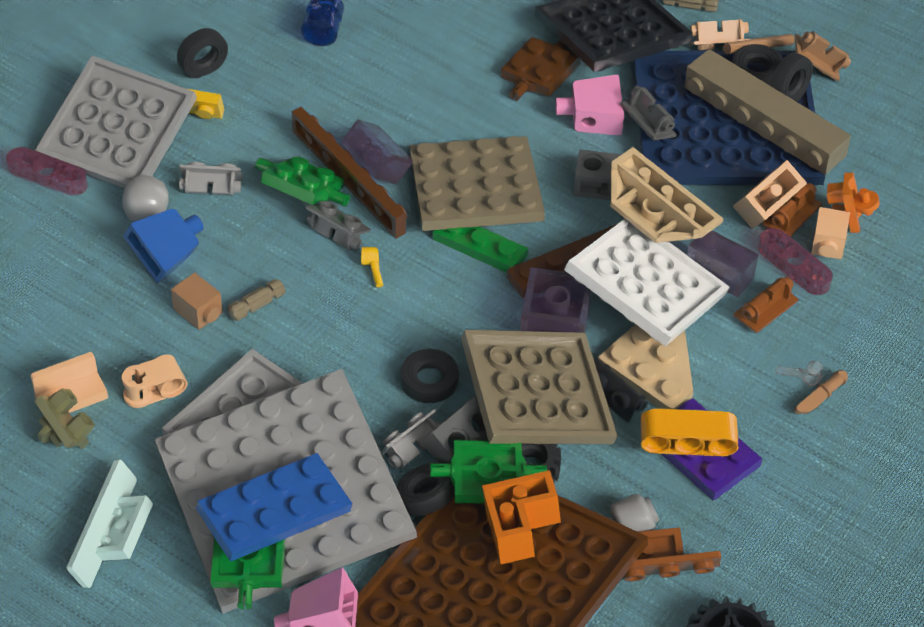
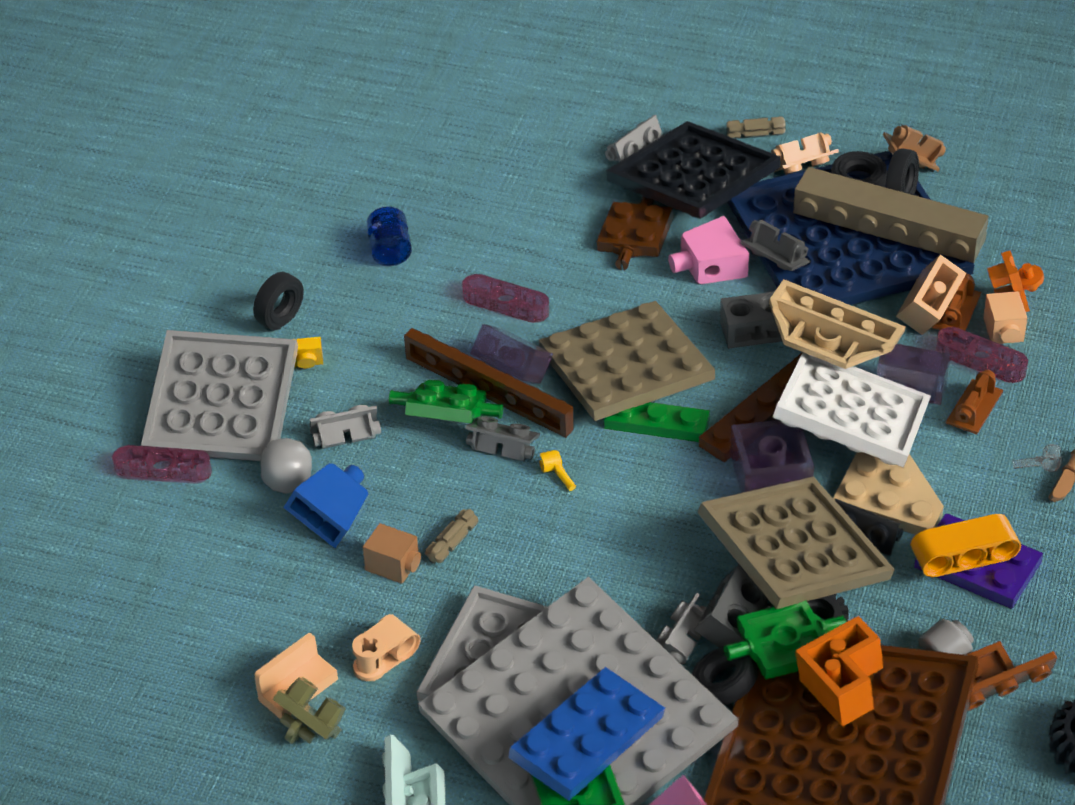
camera: 15 degrees left, 5 degrees down
(406, 111) = (525, 305): none -> clear pink beam
(431, 392) = (669, 580): black tyre -> none
(772, 41) = (863, 145): medium nougat bar -> none

